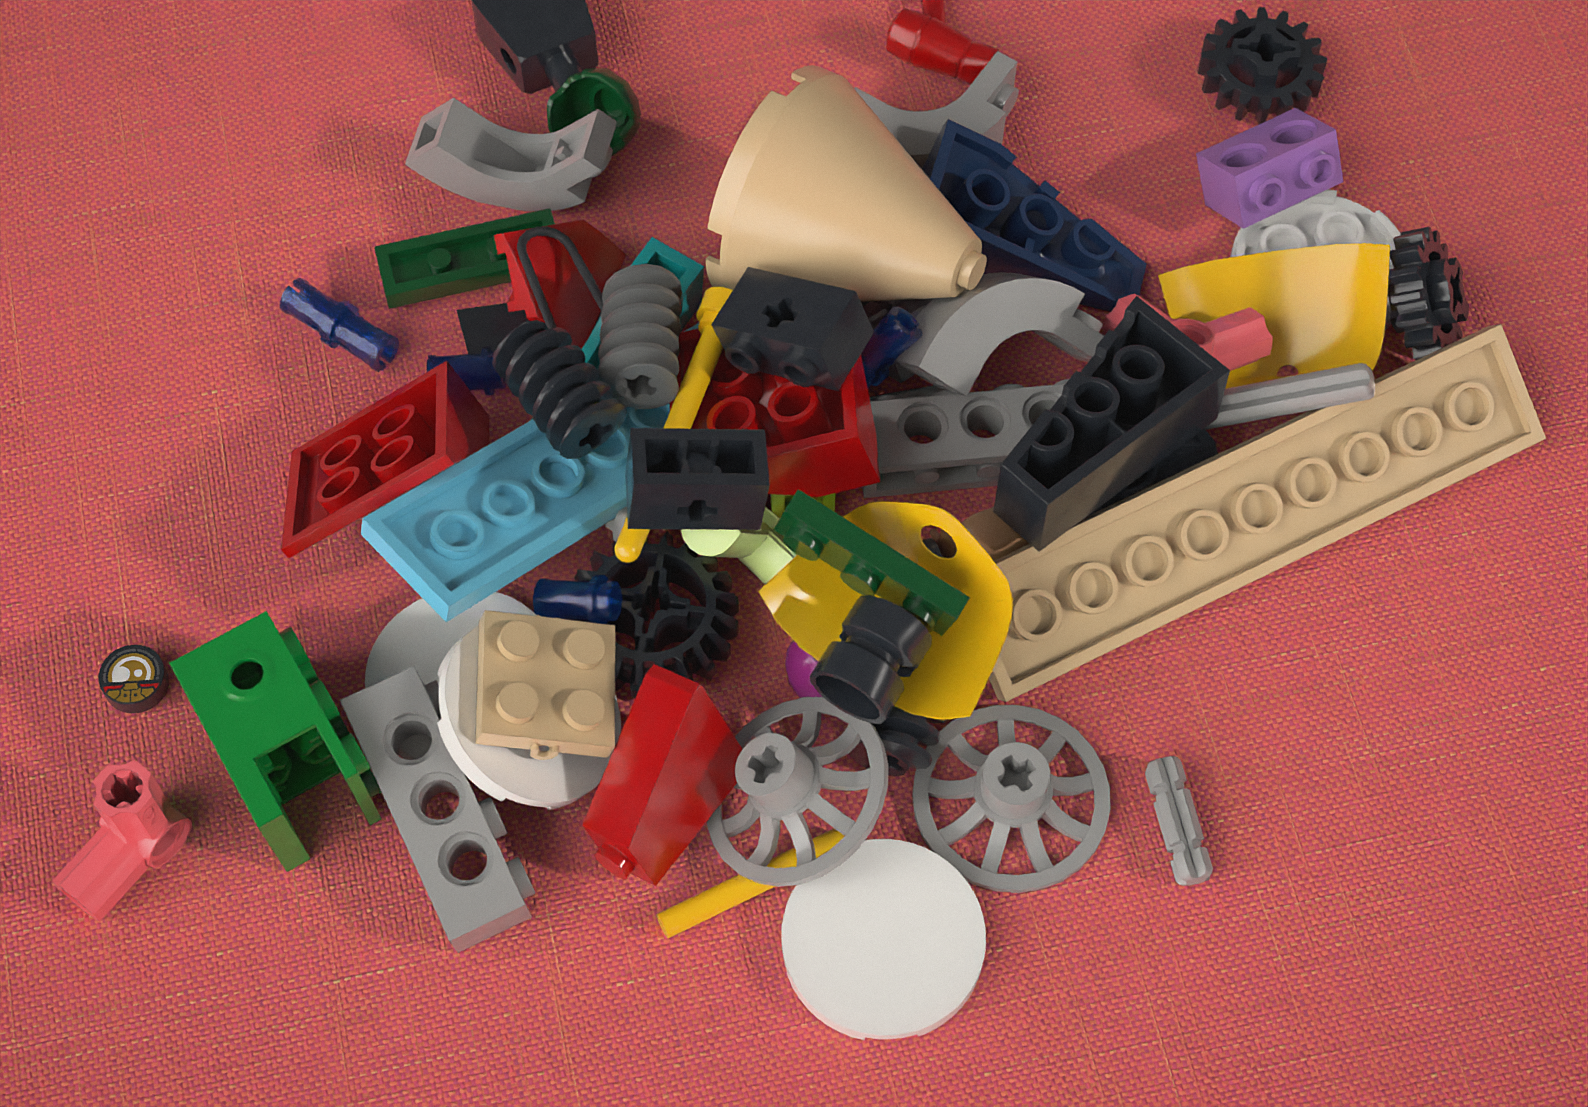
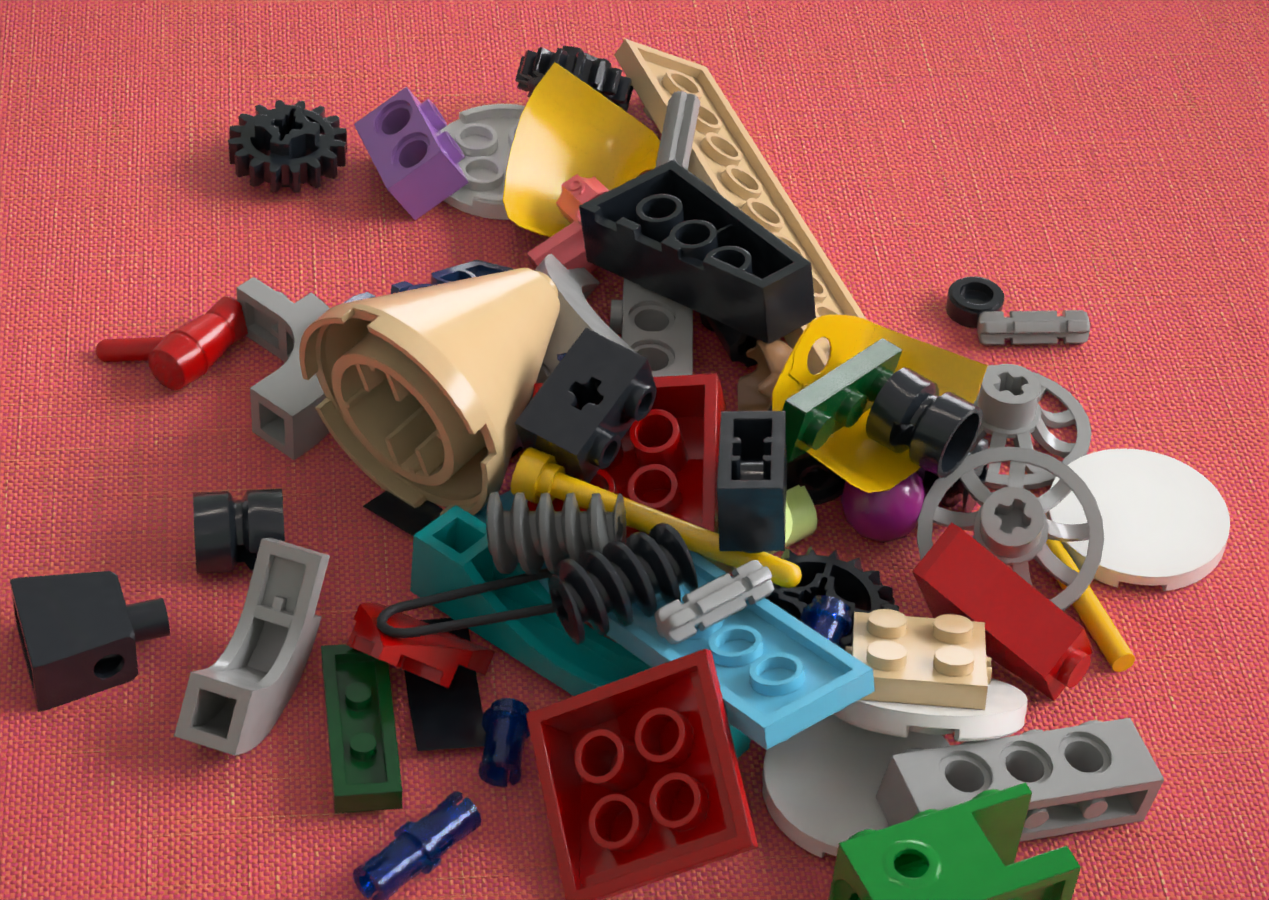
camera: 85 degrees left, 20 degrees down
(553, 475) = (714, 602): none -> light grey axle
(592, 91) = (207, 592): dark green hair -> none
(681, 121) = (233, 529): none -> black wheel
(1213, 757) = (970, 298): none -> black tile

